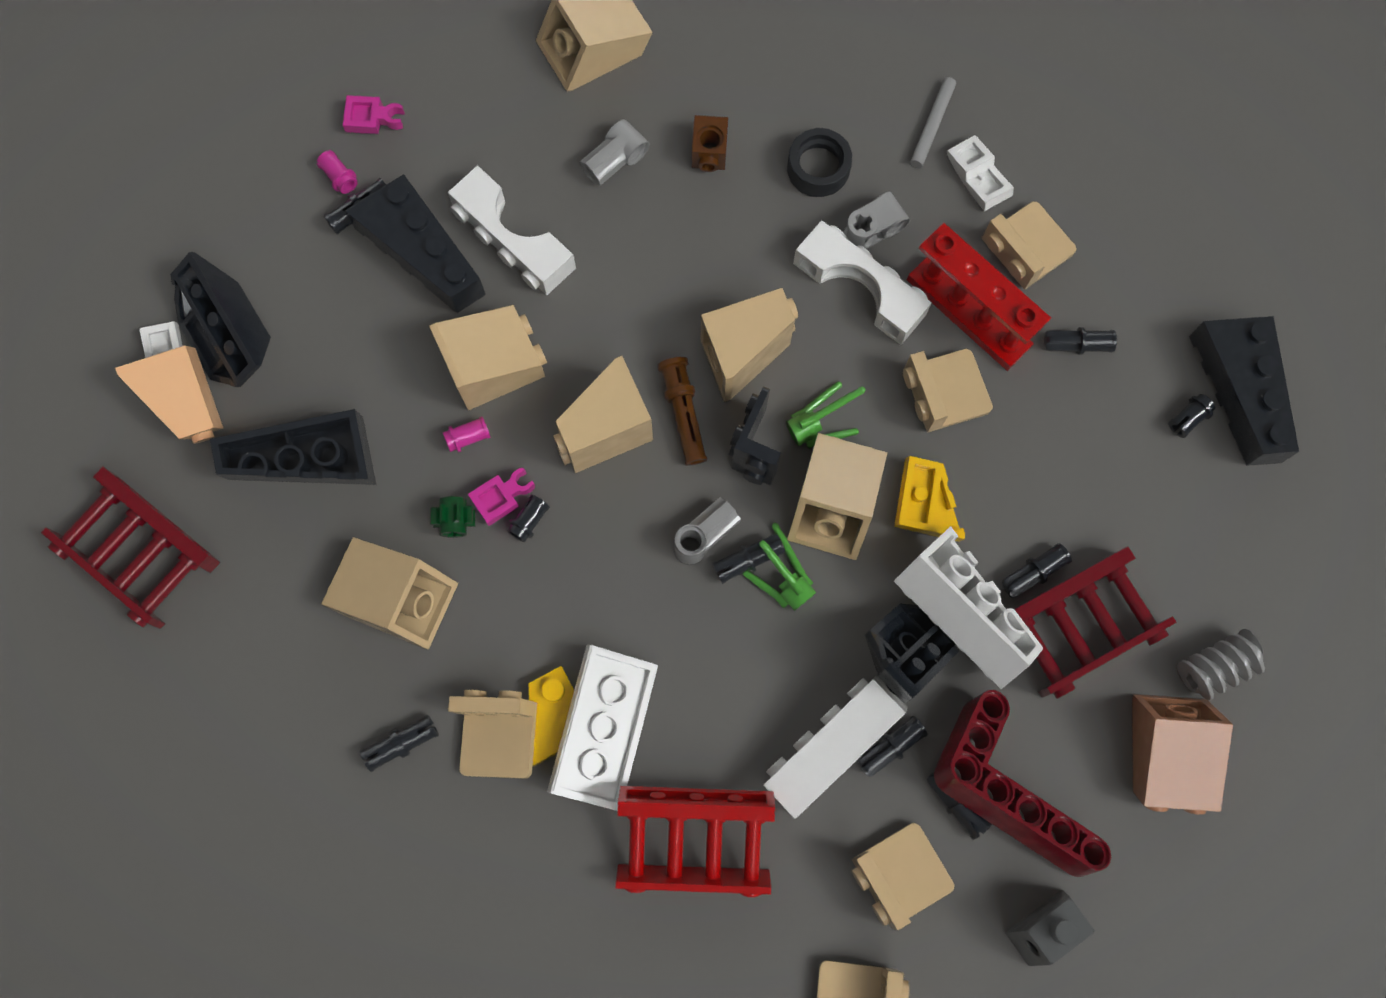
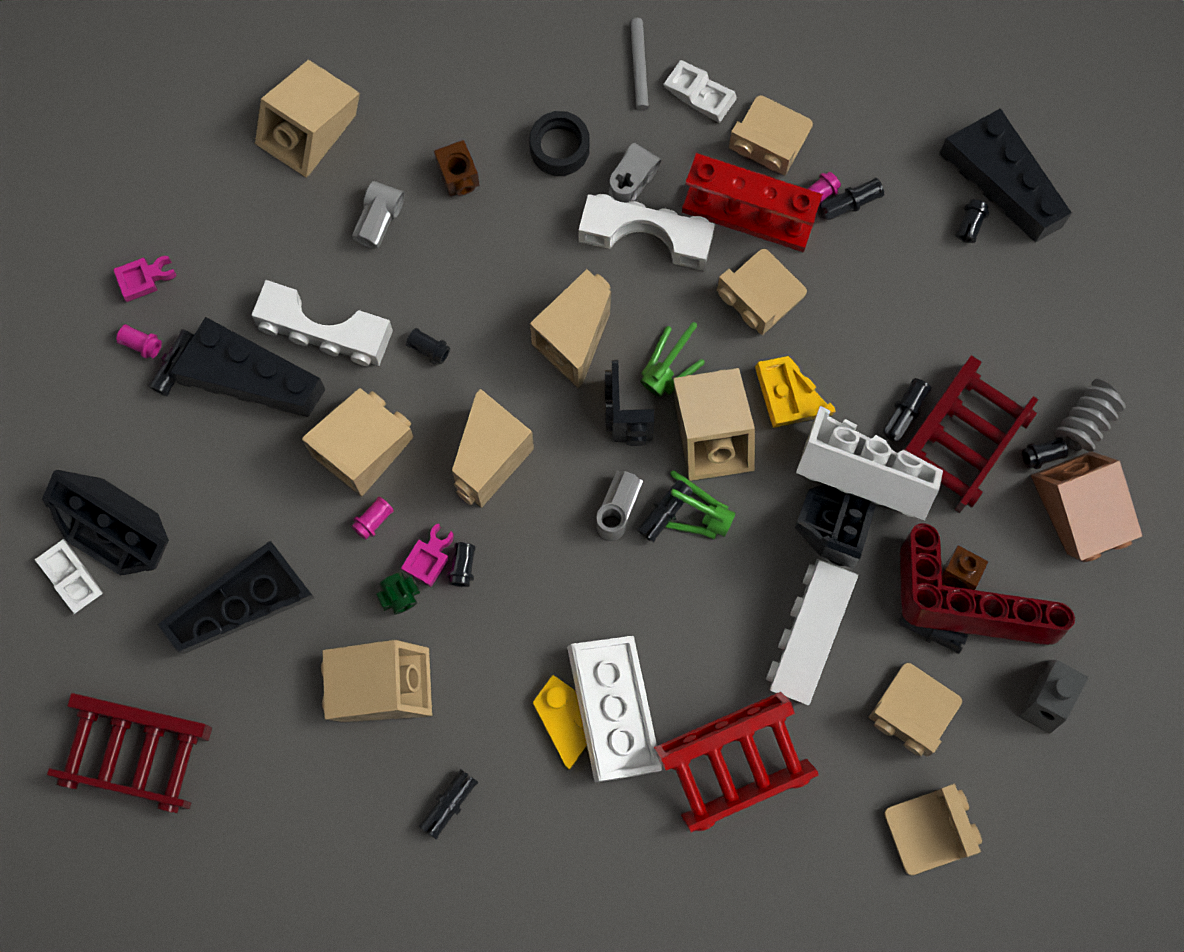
camera: 25 degrees left, 0 degrees up
(176, 392) = (100, 599): light nougat slope -> none
(496, 734) = (527, 756): tan bracket -> none
(604, 303) = (428, 346): none -> black pin
(680, 394) = (540, 399): reddish brown pin -> none
(892, 746) = (858, 610): black axle -> none
(1017, 757) = (963, 569): none -> reddish brown brick
(1060, 316) = (826, 185): none -> dark pink pin
(1149, 677) = (1043, 453): none -> black pin

